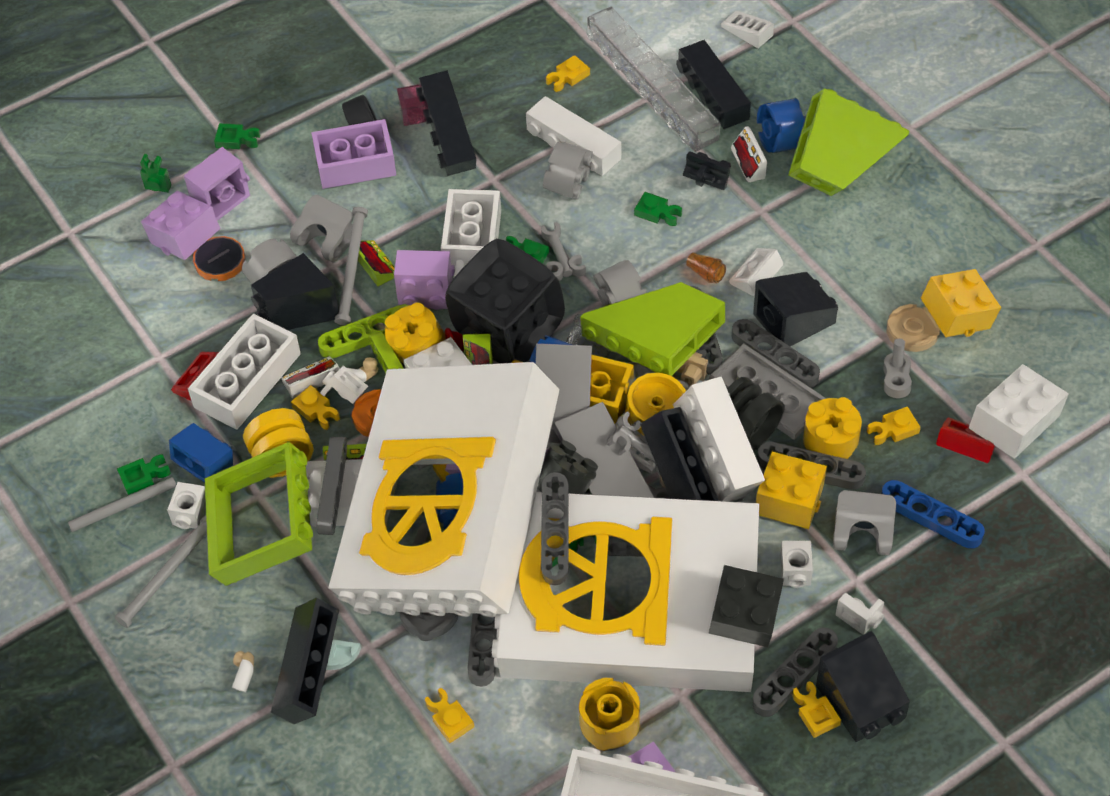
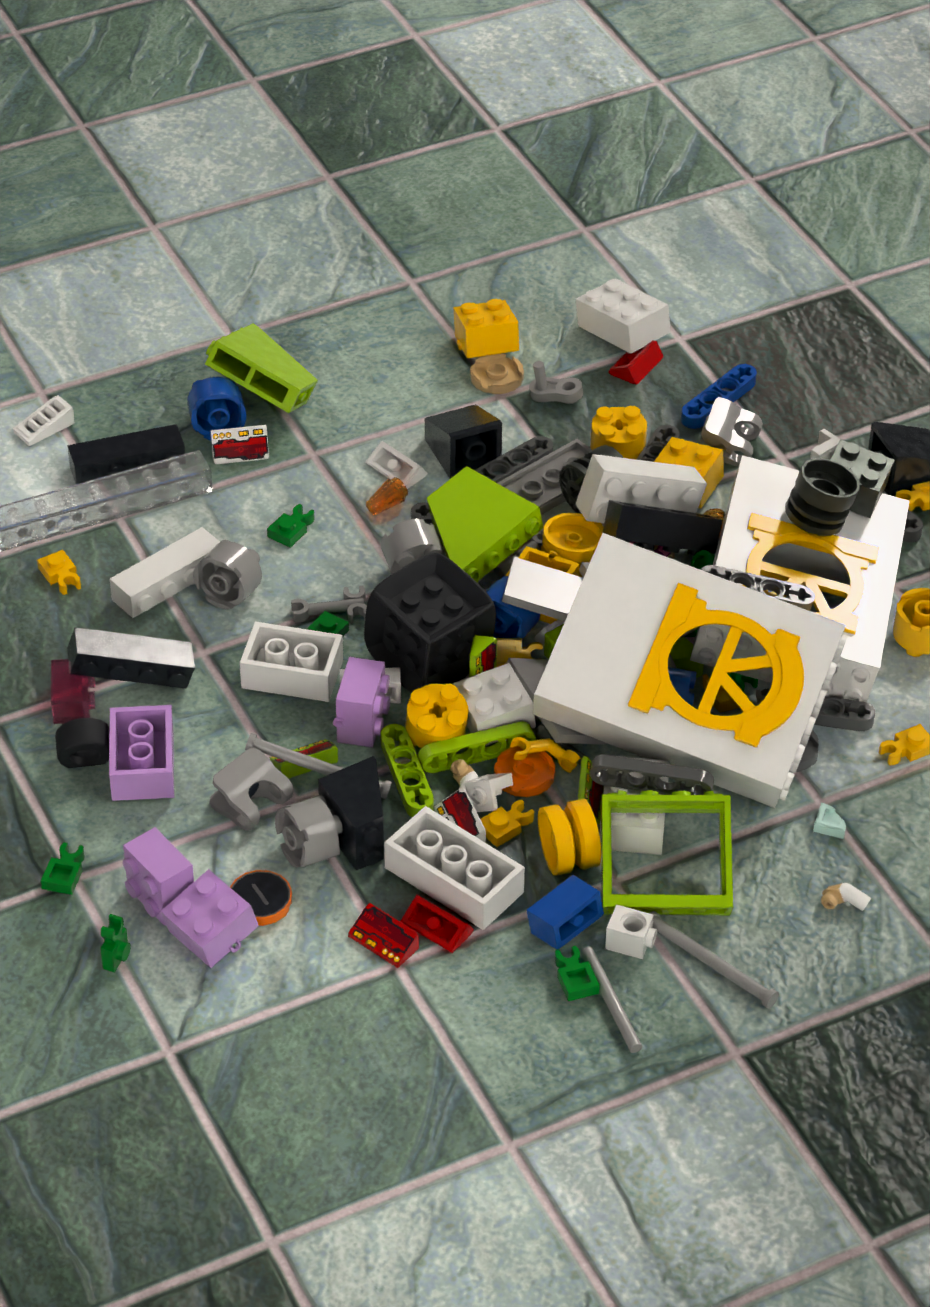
camera: 85 degrees left, 10 degrees down
(181, 343) = (384, 935): none -> slope
(305, 661) = (847, 837): black brick -> none
(698, 554) = (822, 496): none -> pearl dark grey wheel
(707, 170) = (253, 477): black hips -> none
(897, 424) = (611, 396): yellow plate -> none

